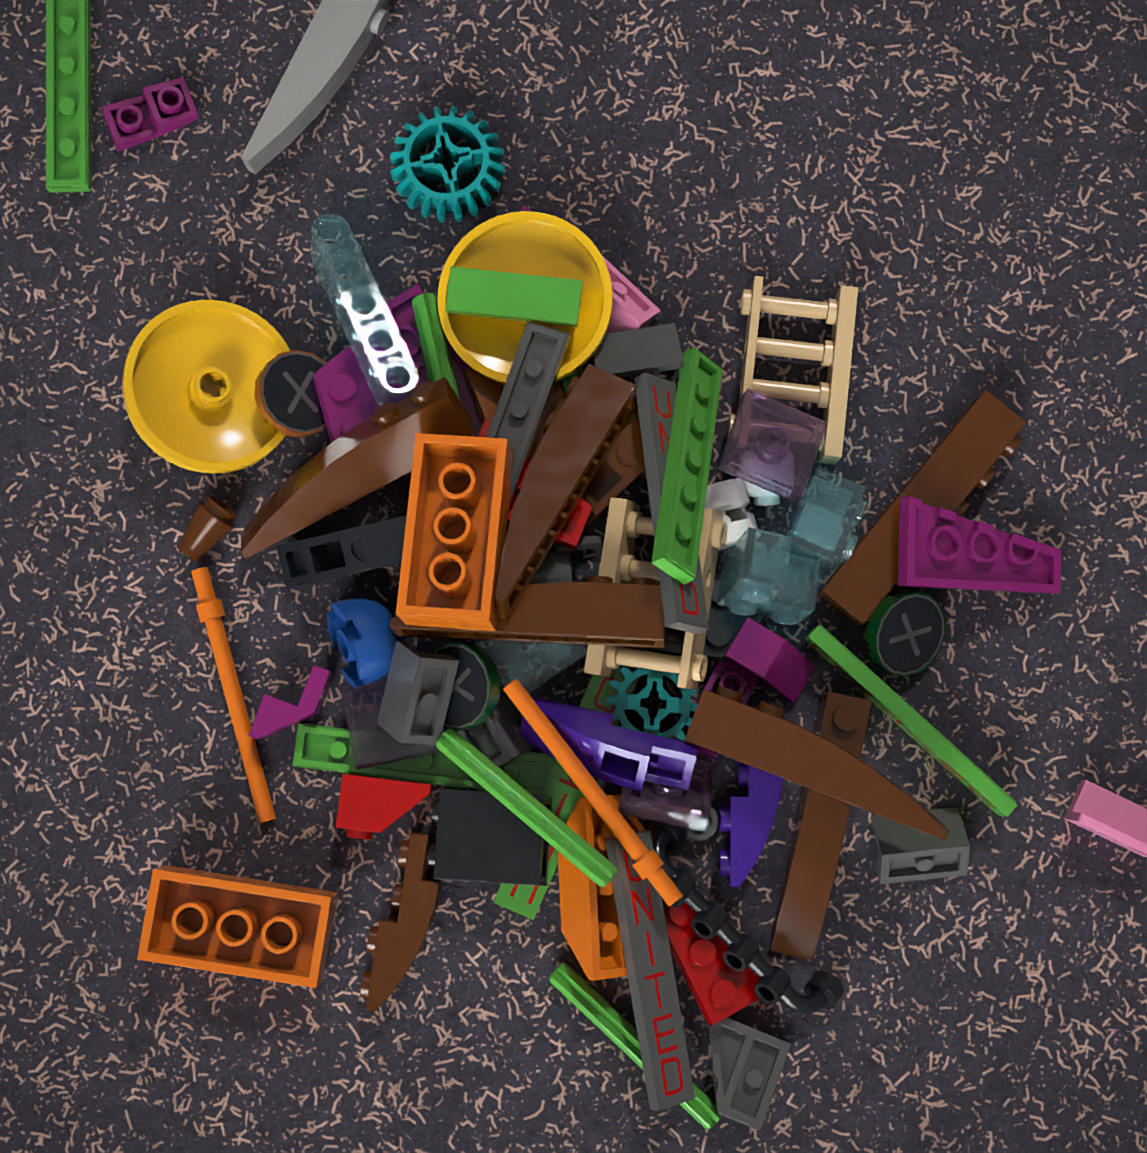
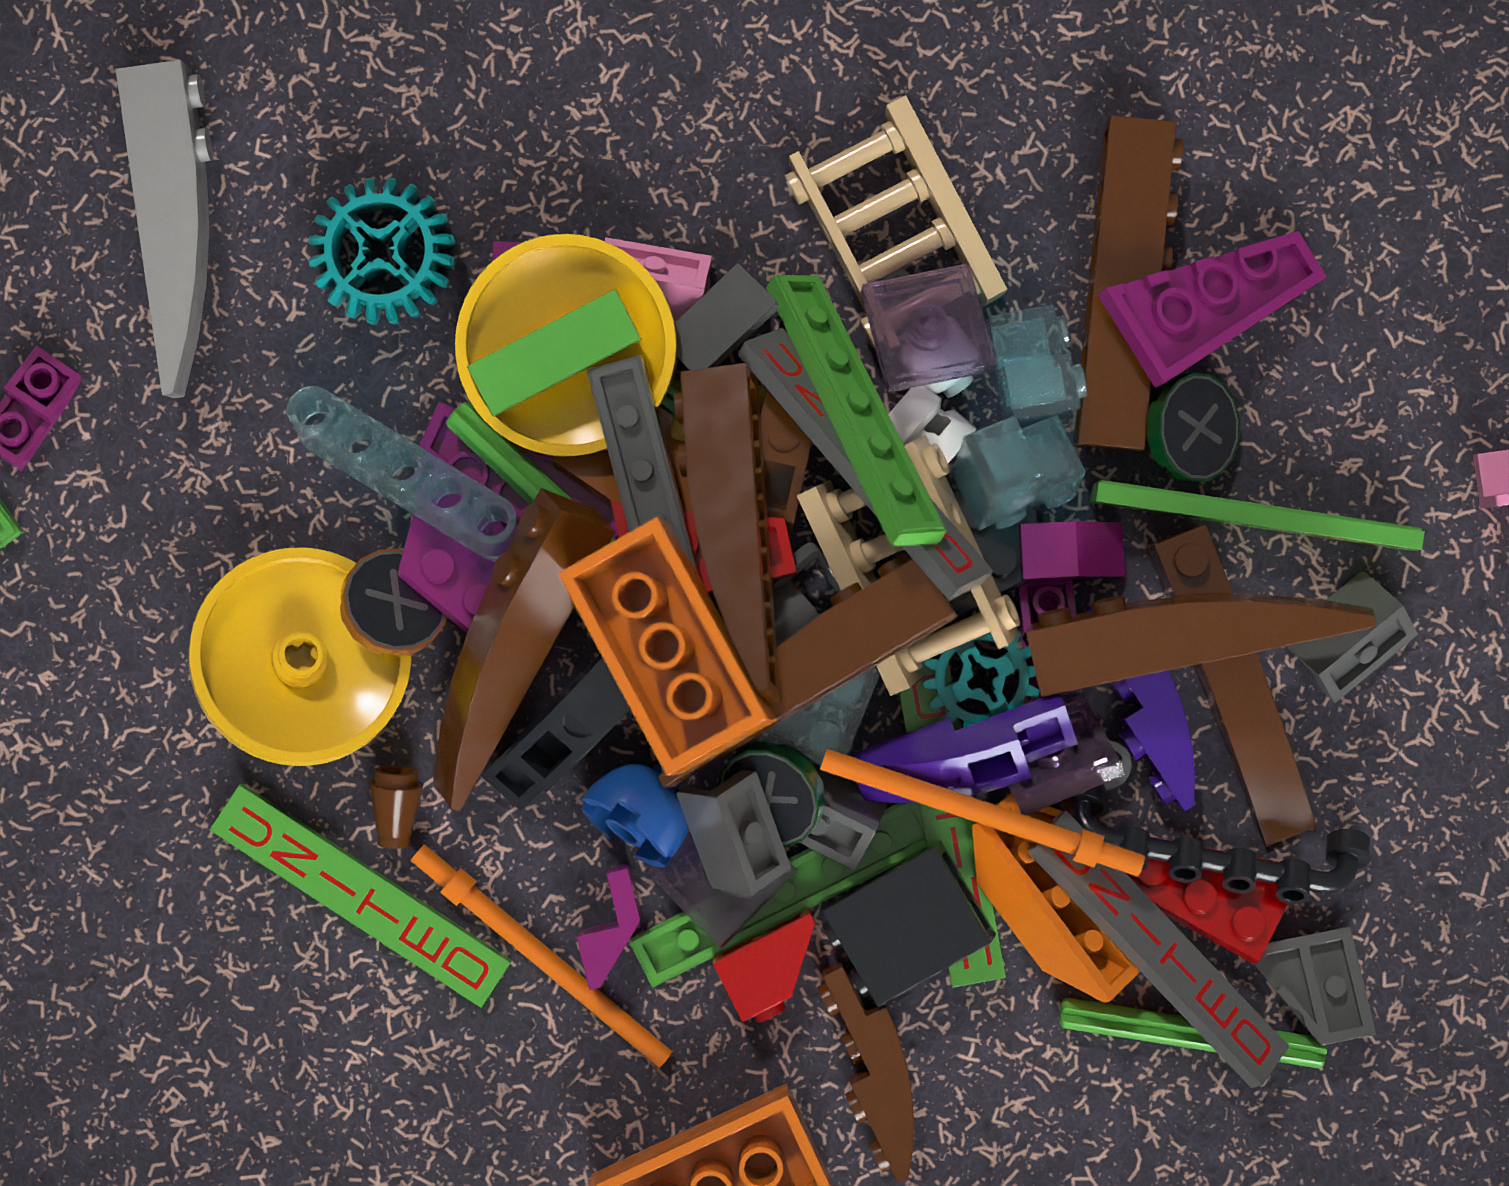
camera: 35 degrees left, 5 degrees up
(143, 573) = (361, 895): none -> bright green tile
(527, 808) = (925, 873): bright green axle -> none

